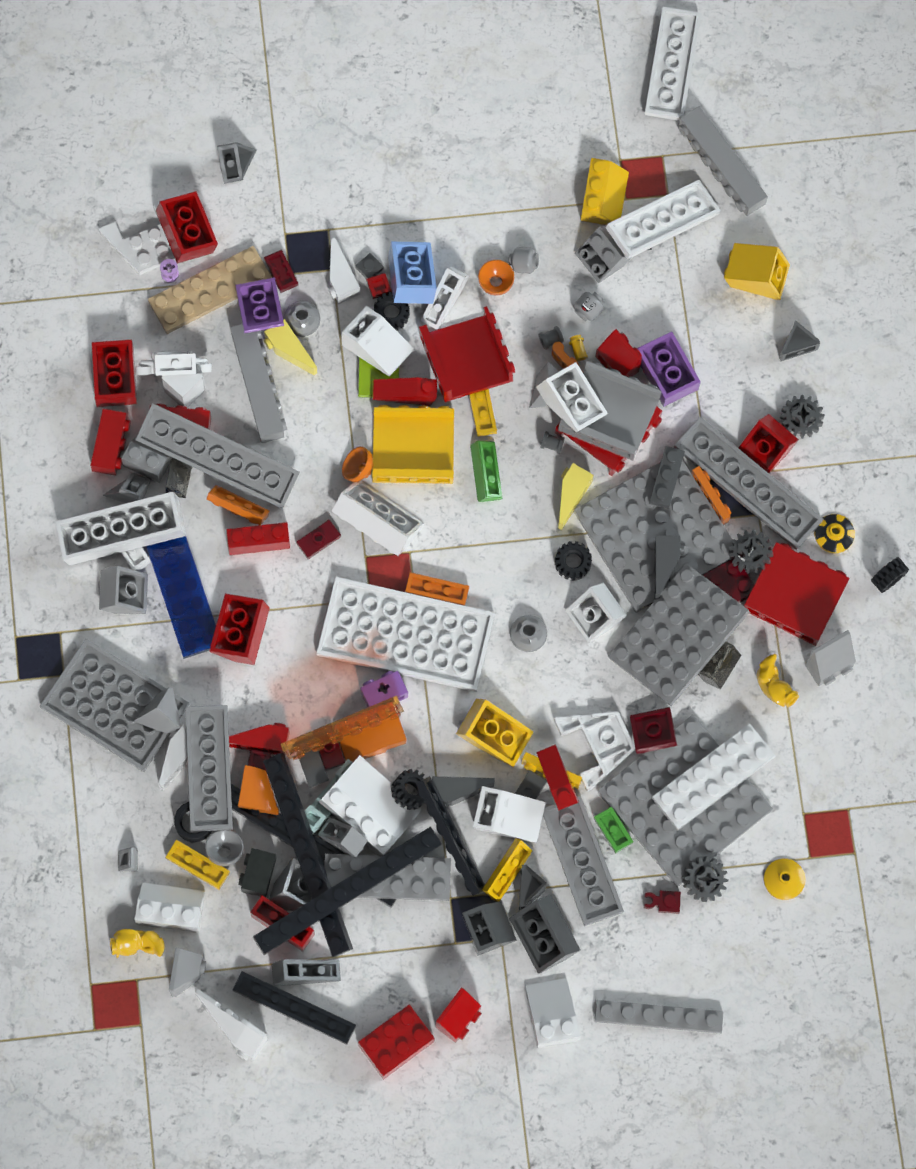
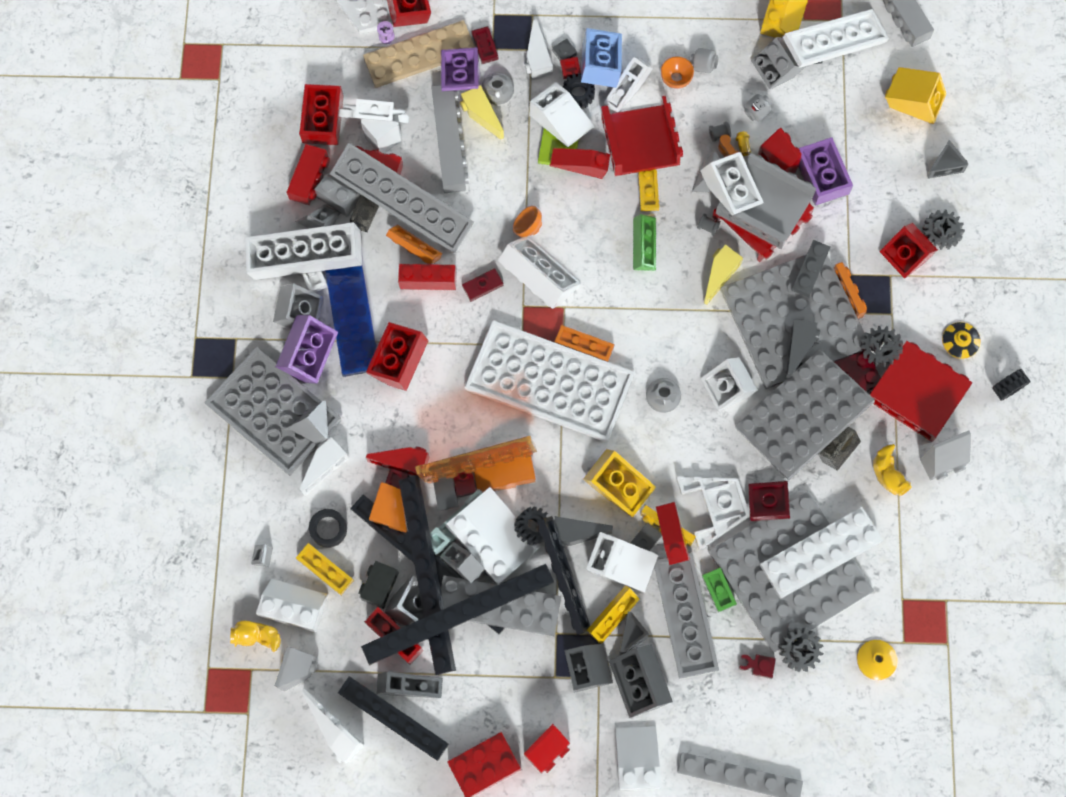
camera: 15 degrees right, 0 degrees up
(142, 634) = (306, 349): none -> medium lavender brick
(209, 768) = (347, 480): light grey plate -> none
(224, 839) = (347, 549): light grey piece -> none
(391, 682) = (528, 422): medium lavender brick -> none
(413, 445) = (581, 211): yellow panel -> none
(582, 552) = (717, 323): black tyre -> none
(748, 483) = (887, 284): light grey plate -> none

